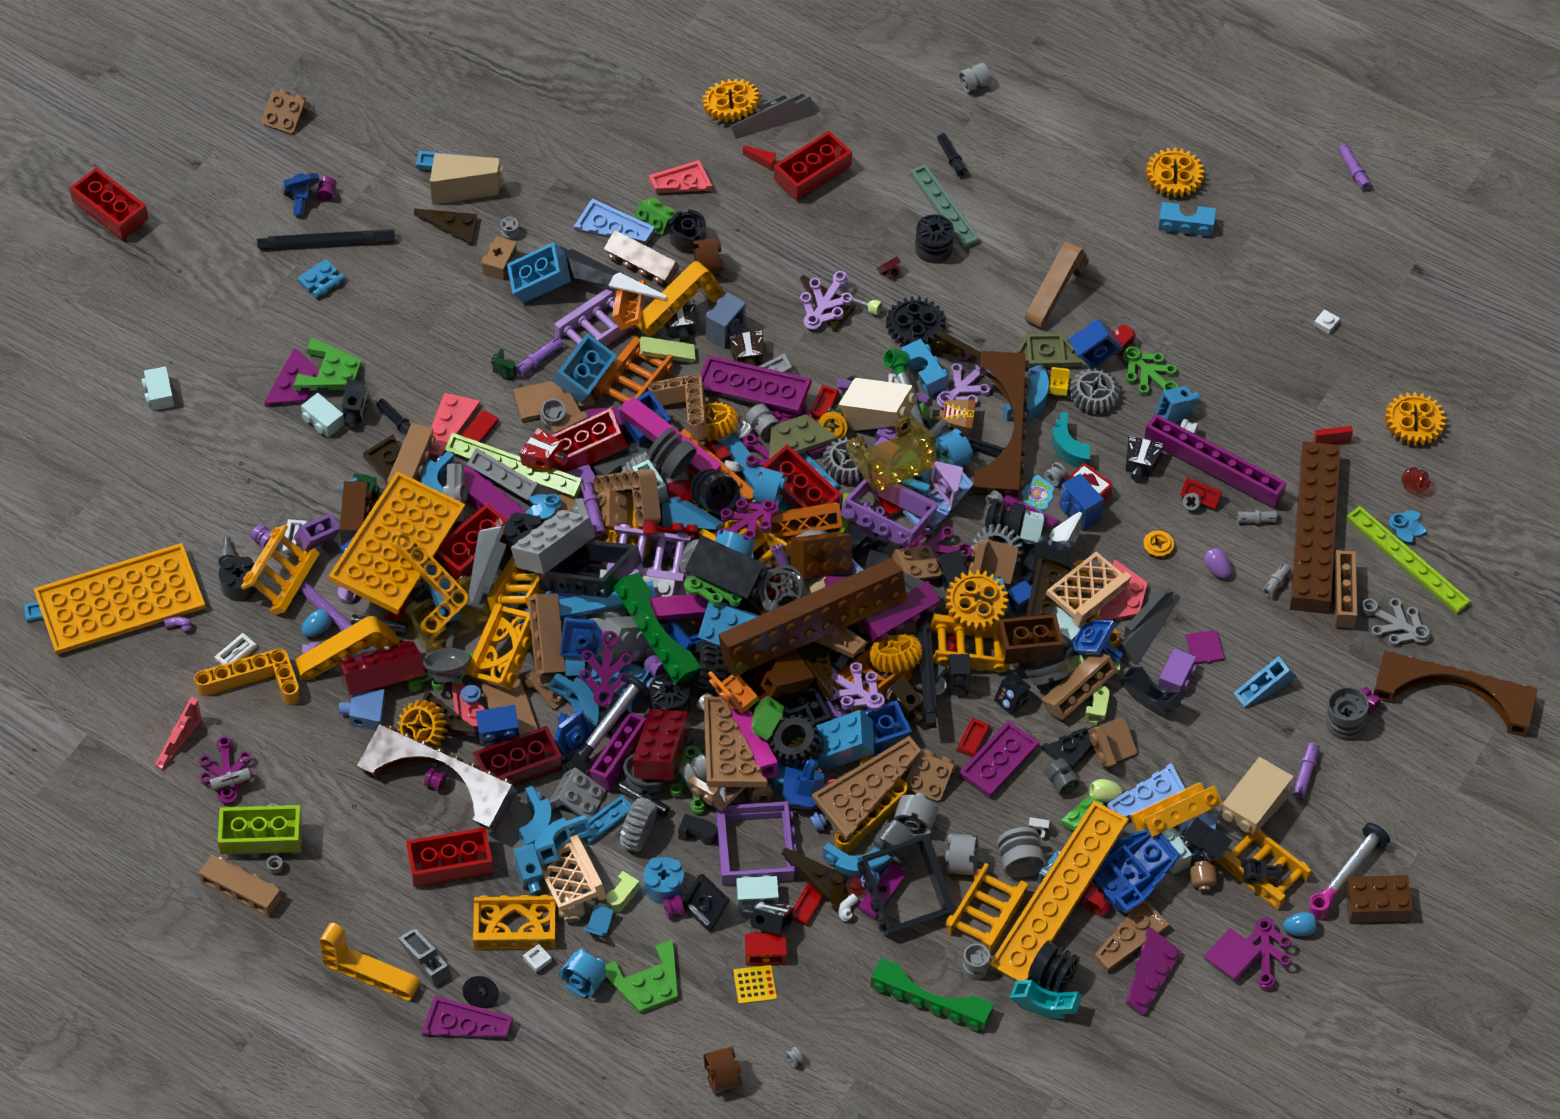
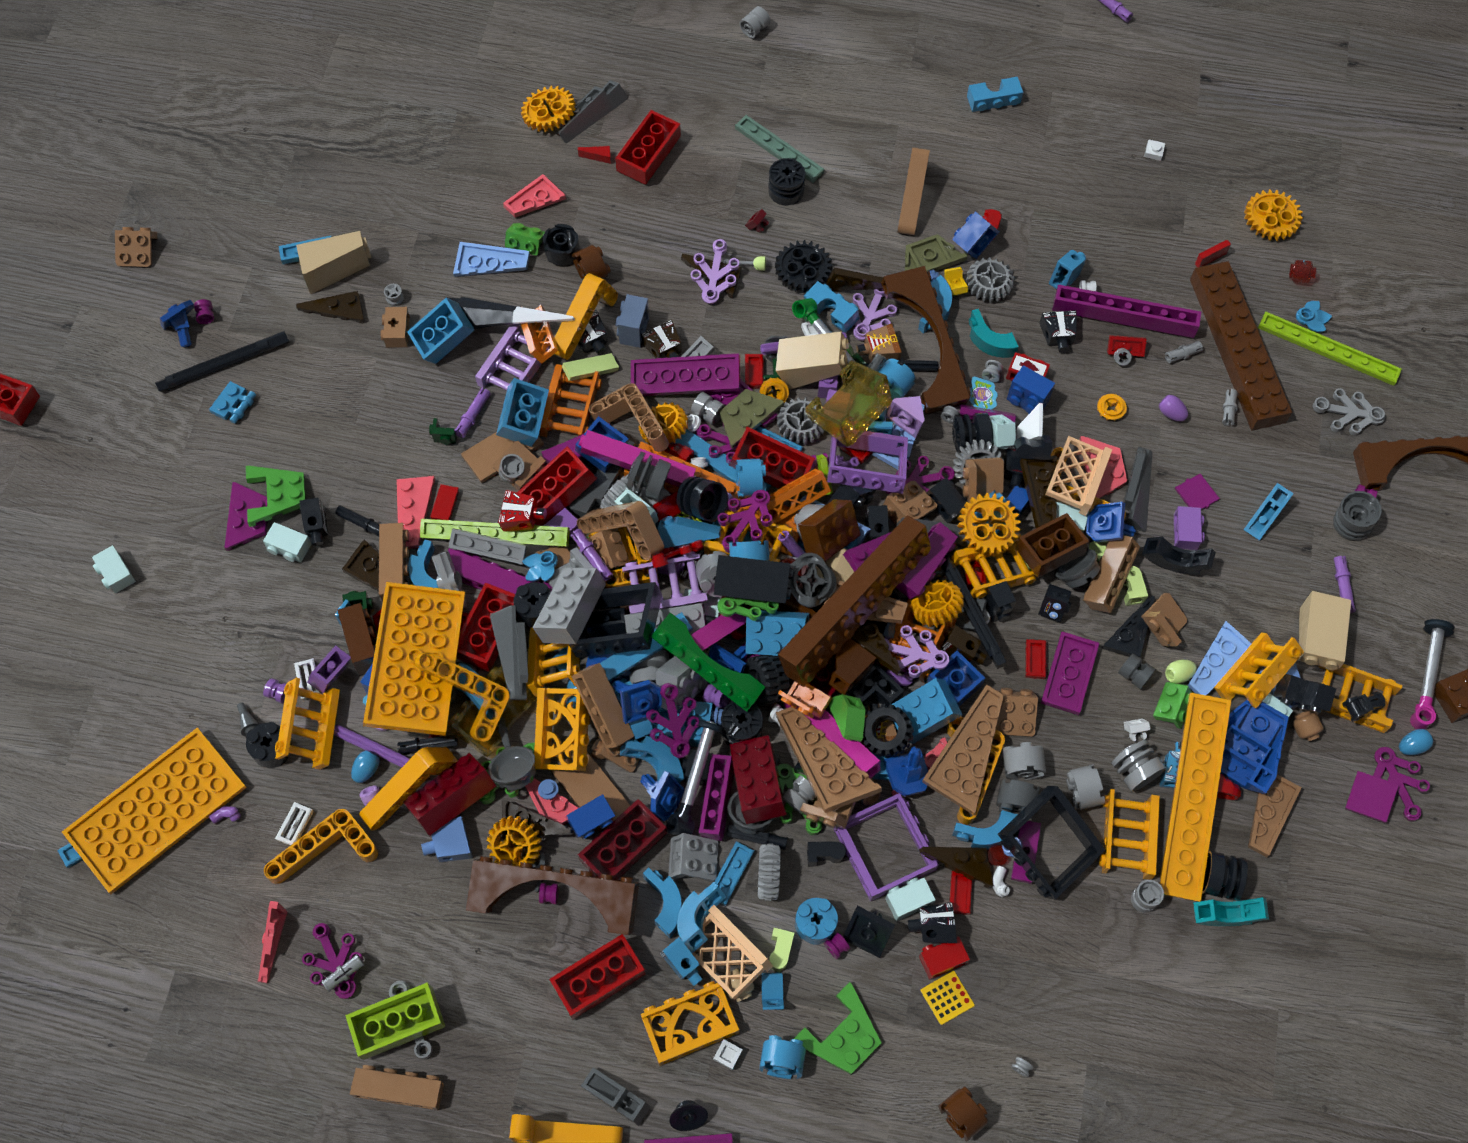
camera: 20 degrees left, 10 degrees up
(641, 257) = (529, 284): brick -> none
(818, 821) = (934, 800): medium blue plate -> none
(954, 159) = (769, 102): black axle -> none
(969, 1011) = (1076, 944): green arch -> none
(1148, 370) = (1027, 245): bright green plant -> none
(1153, 967) = (1308, 841): magenta wing -> none
(1188, 172) = (965, 55): light orange gear -> none
(1345, 589) = (1303, 408): medium nougat brick -> none

